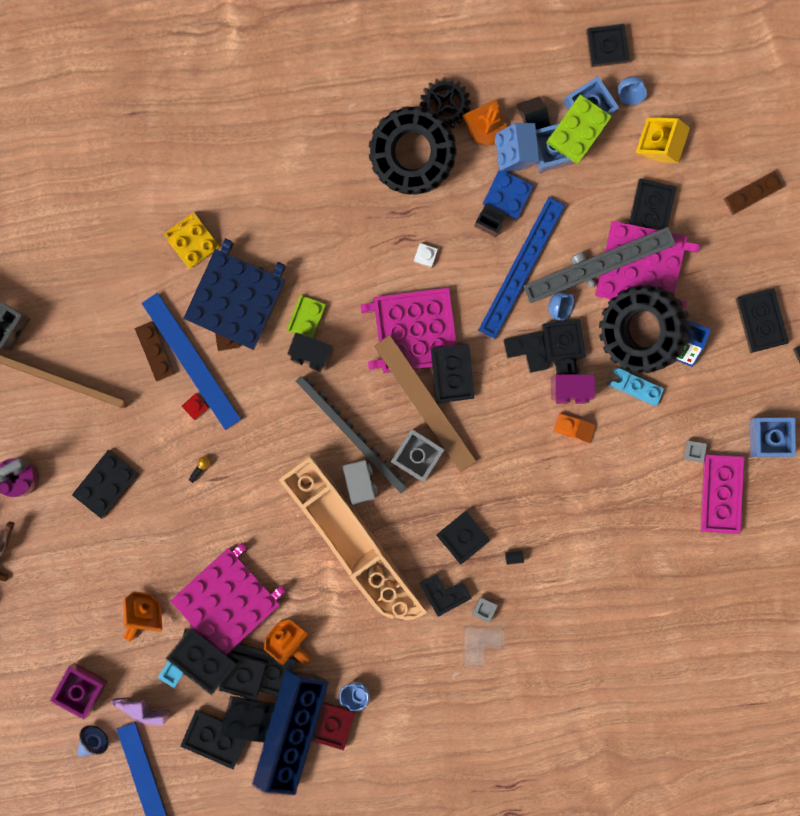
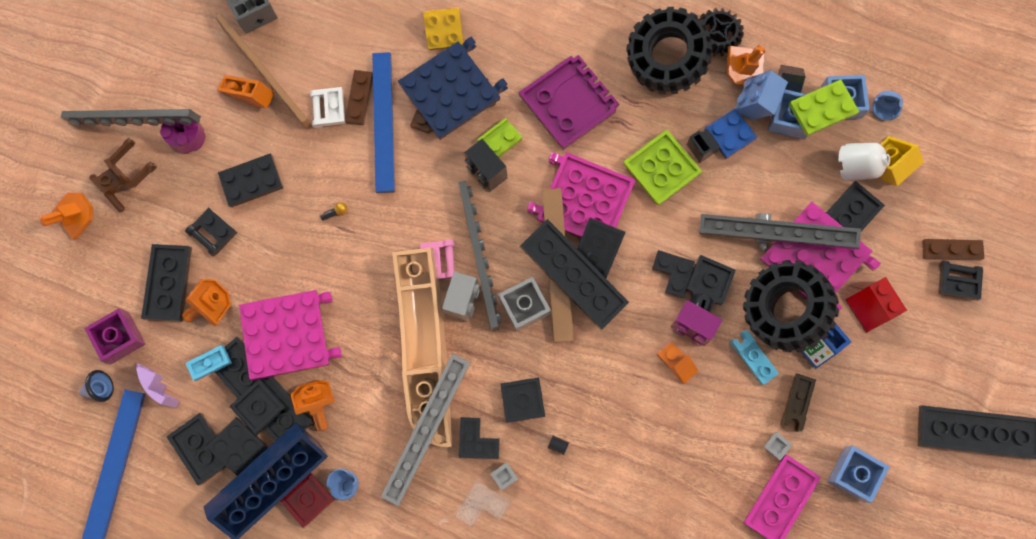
camera: 40 degrees right, 10 degrees down
(47, 405) = (246, 90): none -> orange slope
(91, 618) = (166, 283): none -> black plate
(101, 544) = (216, 227): none -> black plate
(138, 375) = (333, 107): none -> white plate
(195, 406) = (363, 159): red plate -> none
(201, 661) = (230, 369): black plate -> none
(308, 448) = (448, 245): none -> bright pink plate
(347, 246) = (569, 101): none -> magenta hinge
(398, 611) = (425, 429): none -> light grey plate
(425, 255) = (630, 144): white plate -> none
(444, 405) = (574, 274): none -> black plate
(465, 261) = (662, 167): none -> lime plate
(521, 268) = (707, 200): blue tile -> none
(561, 305) = (725, 249): medium blue hair -> none
(607, 45) = (885, 59): black plate -> none
(637, 159) = (863, 161): none -> white cylinder
(693, 403) = (798, 402): none -> dark brown plate
(714, 281) = (876, 304): none -> red slope
(762, 320) = (903, 364): black plate -> none
(774, 224) = (960, 286): none -> black plate

